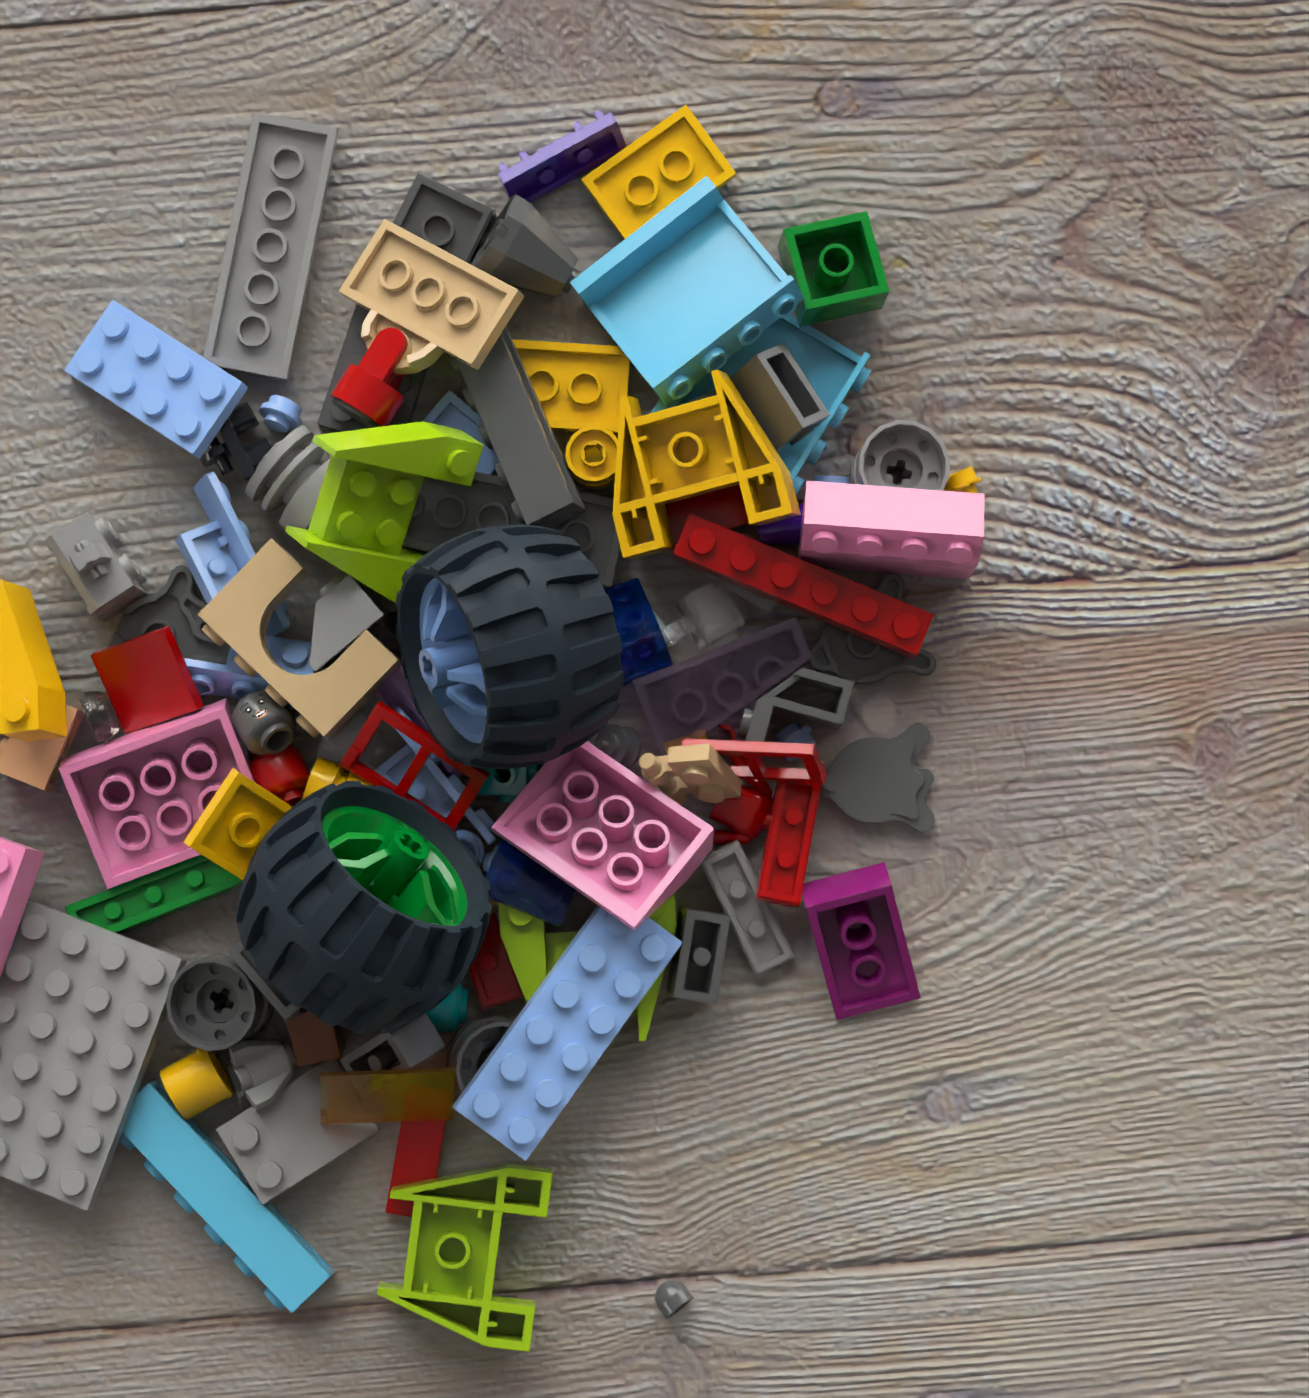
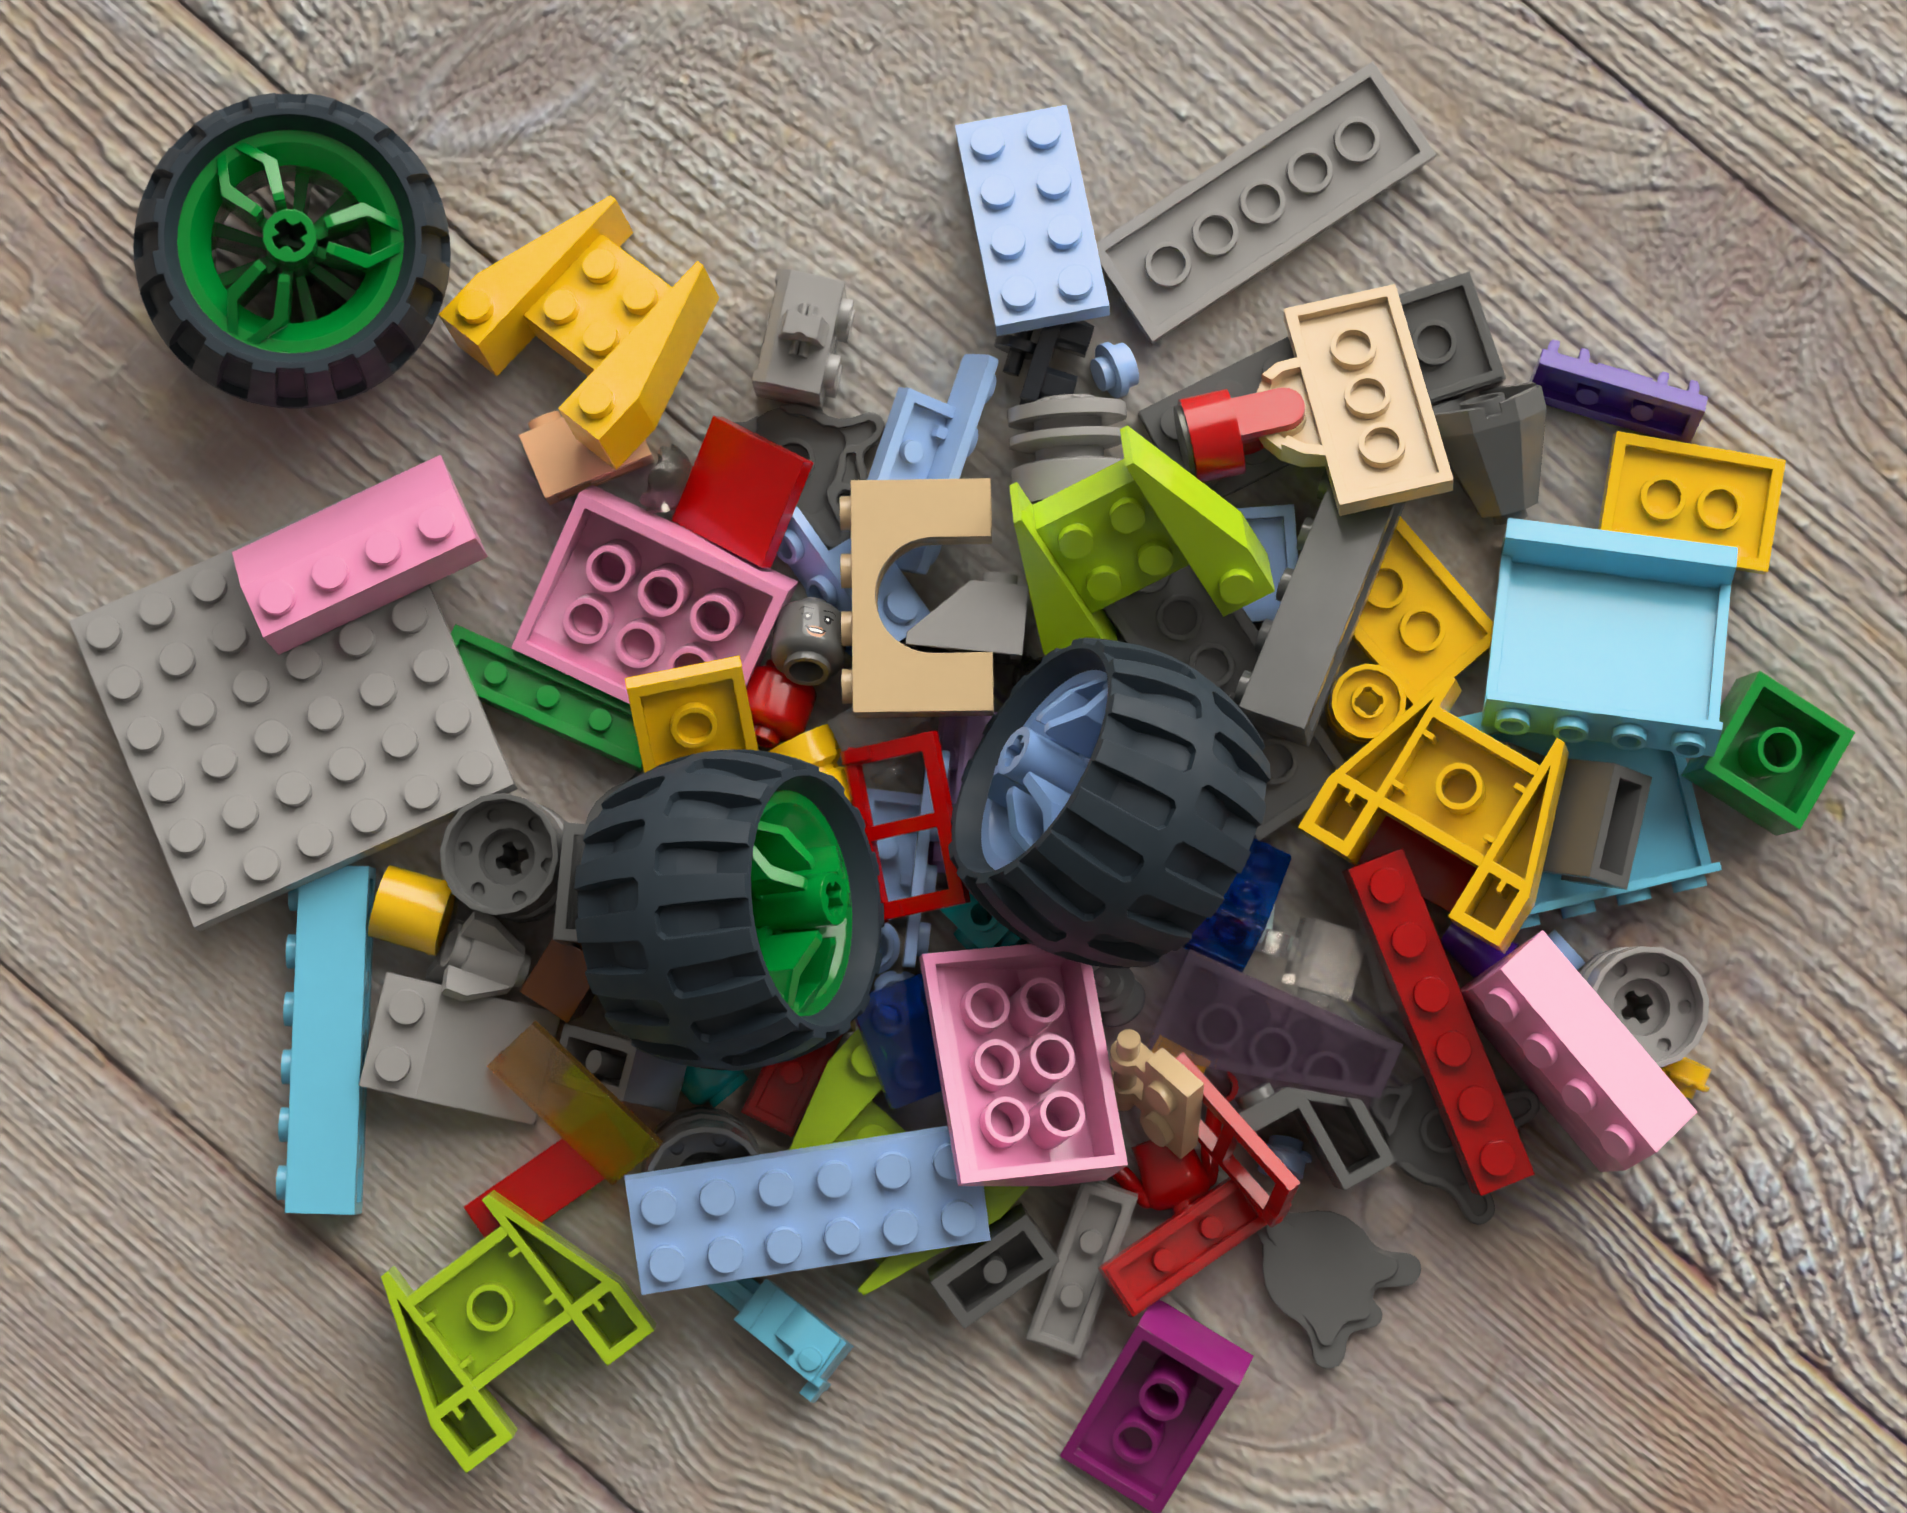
camera: 40 degrees right, 0 degrees up
(623, 1101) = (787, 1330): none -> medium azure piece

